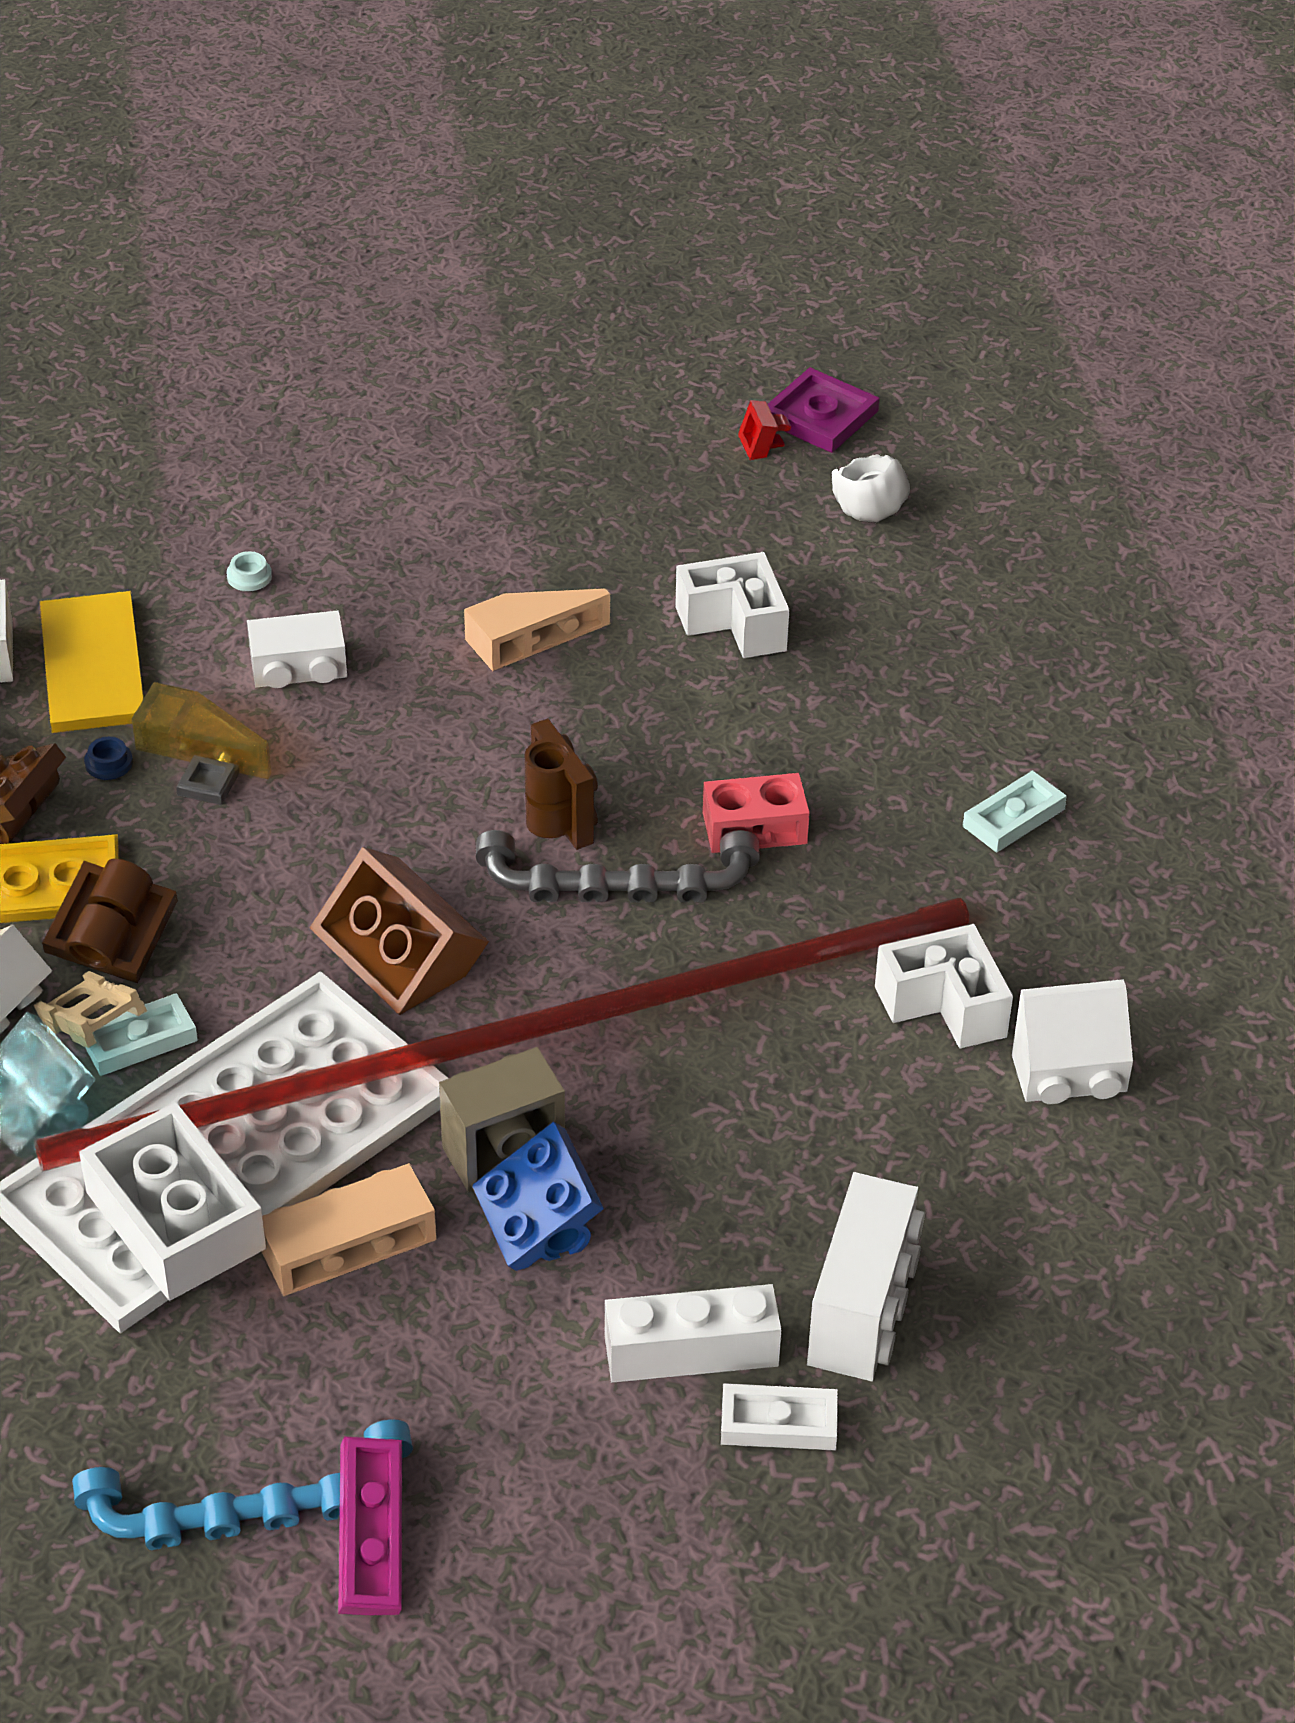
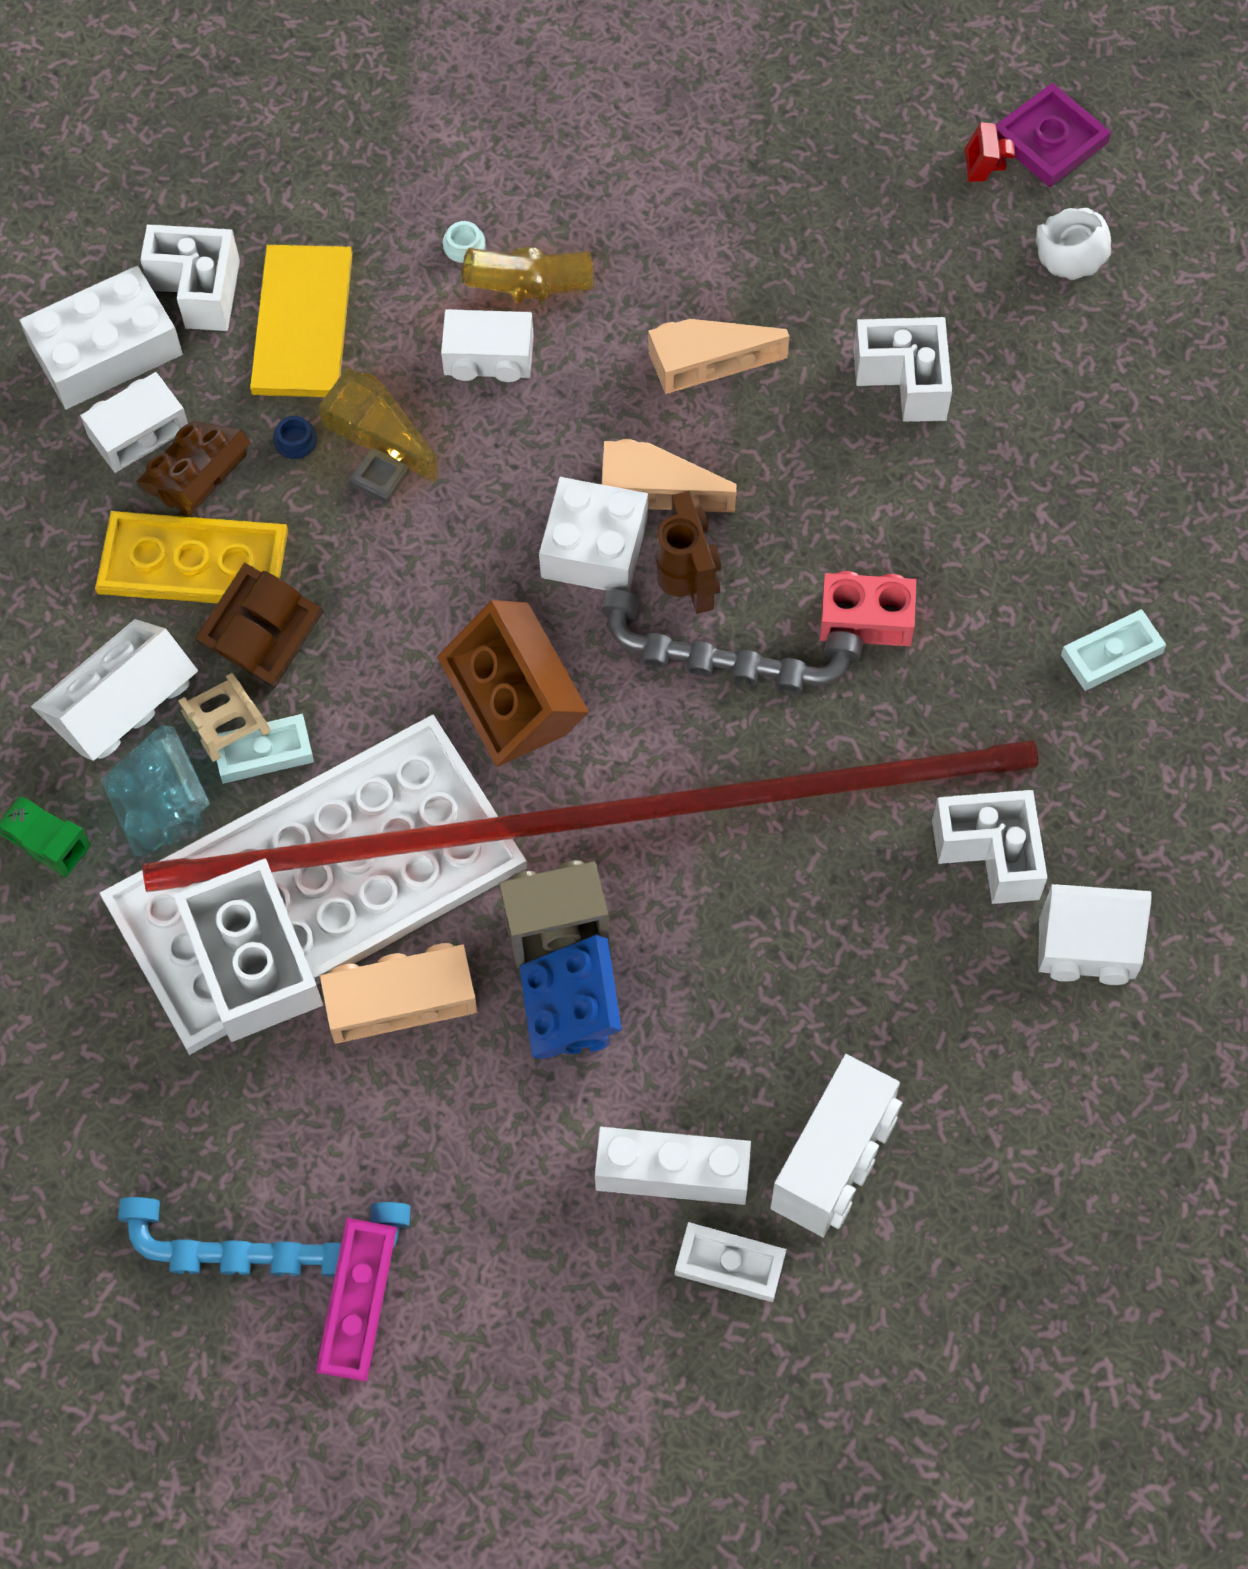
camera: 15 degrees right, 20 degrees up
(323, 584) = (528, 272): none -> clear yellow piece
(451, 790) = (593, 535): none -> white brick
(497, 734) = (663, 474): none -> light nougat slope

